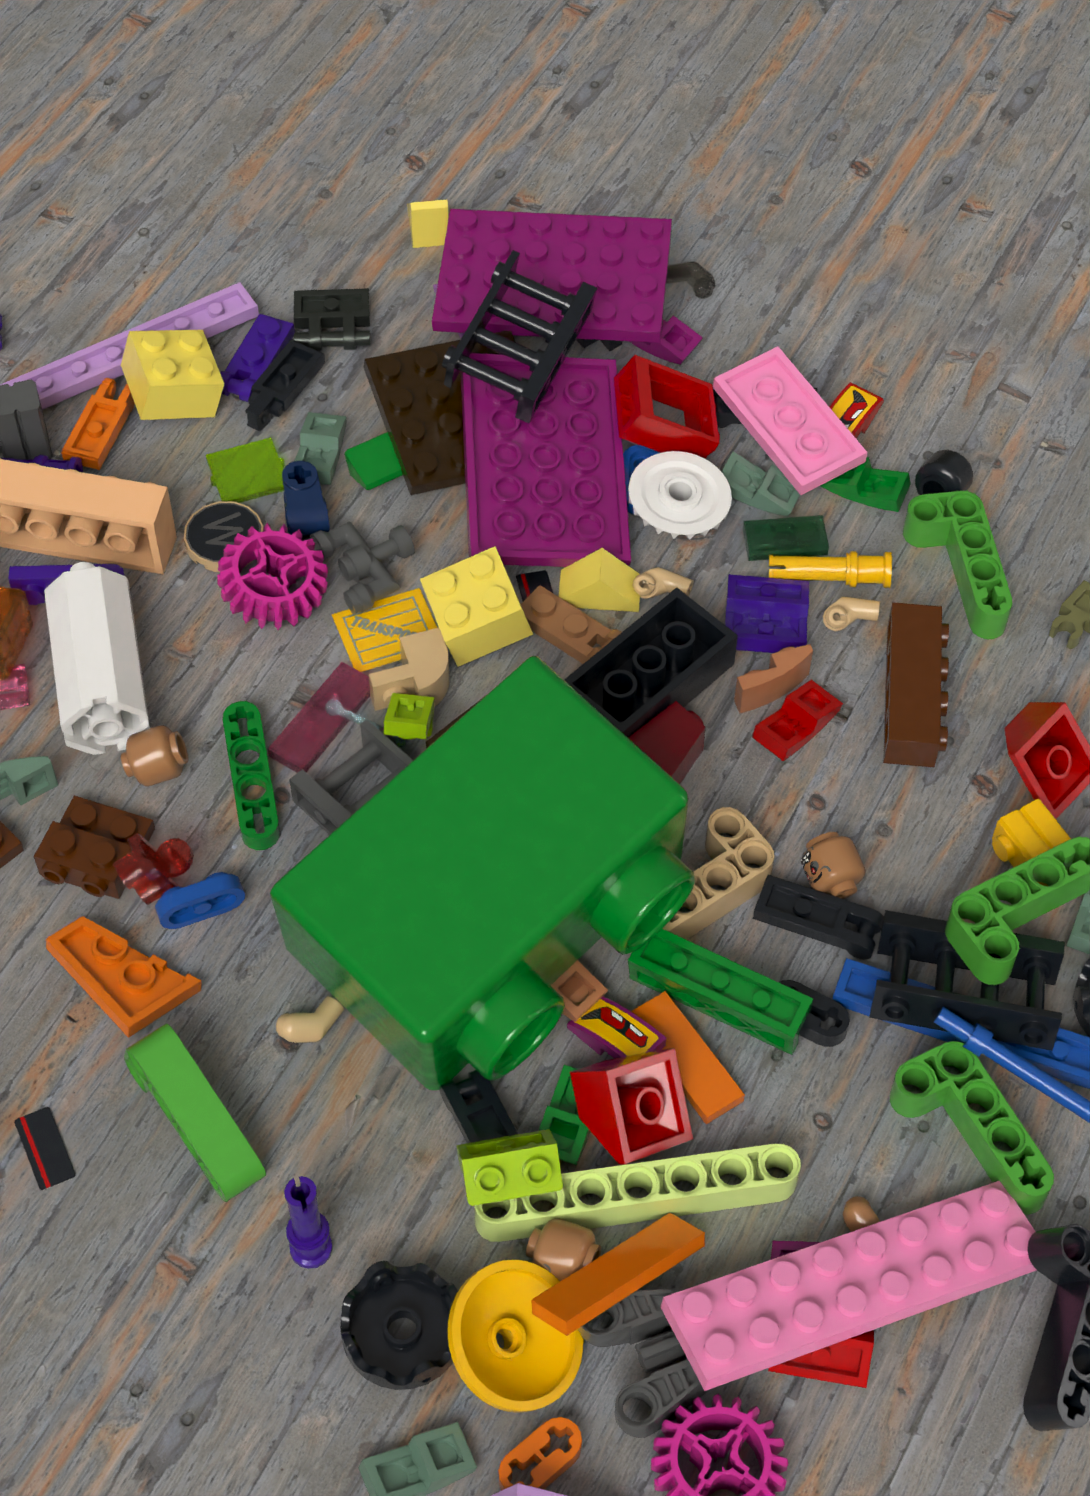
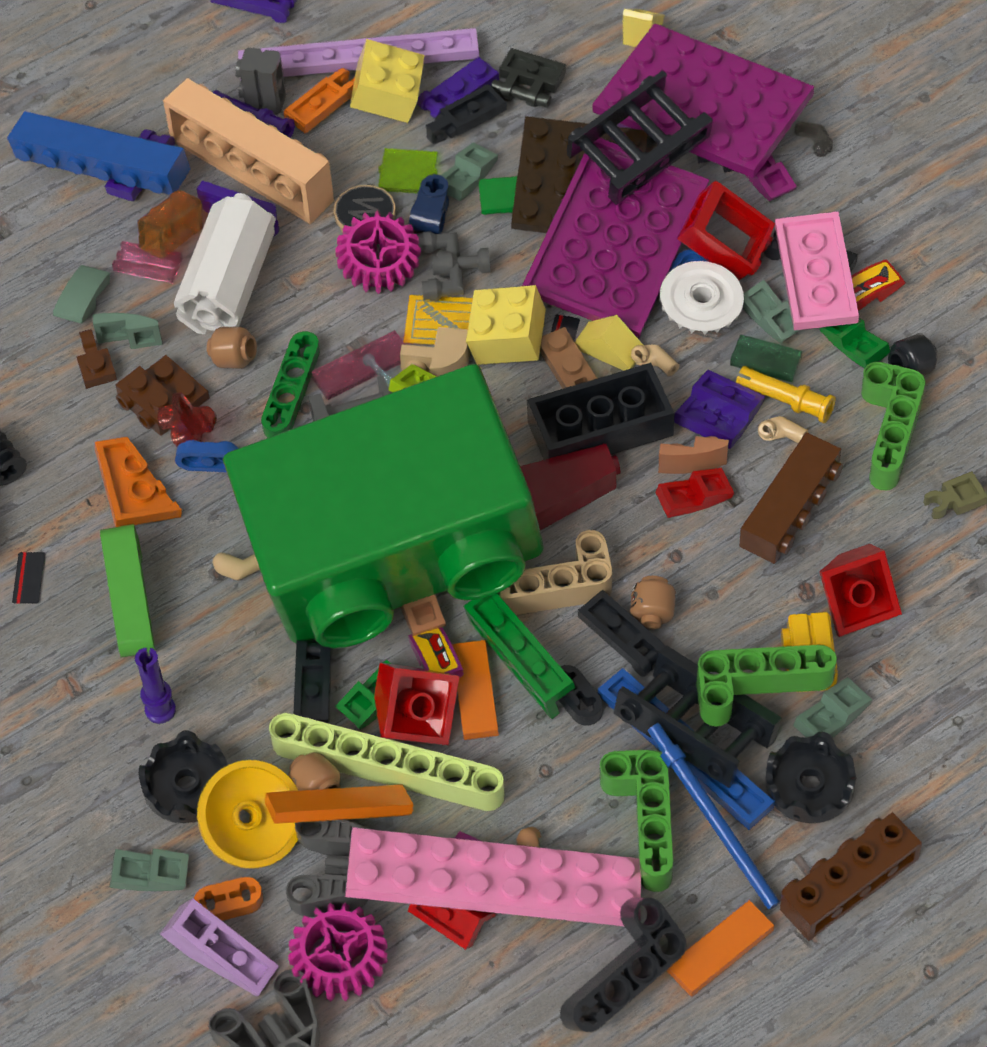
camera: 30 degrees right, 0 degrees up
(510, 1167) = (304, 707): lime bracket -> none

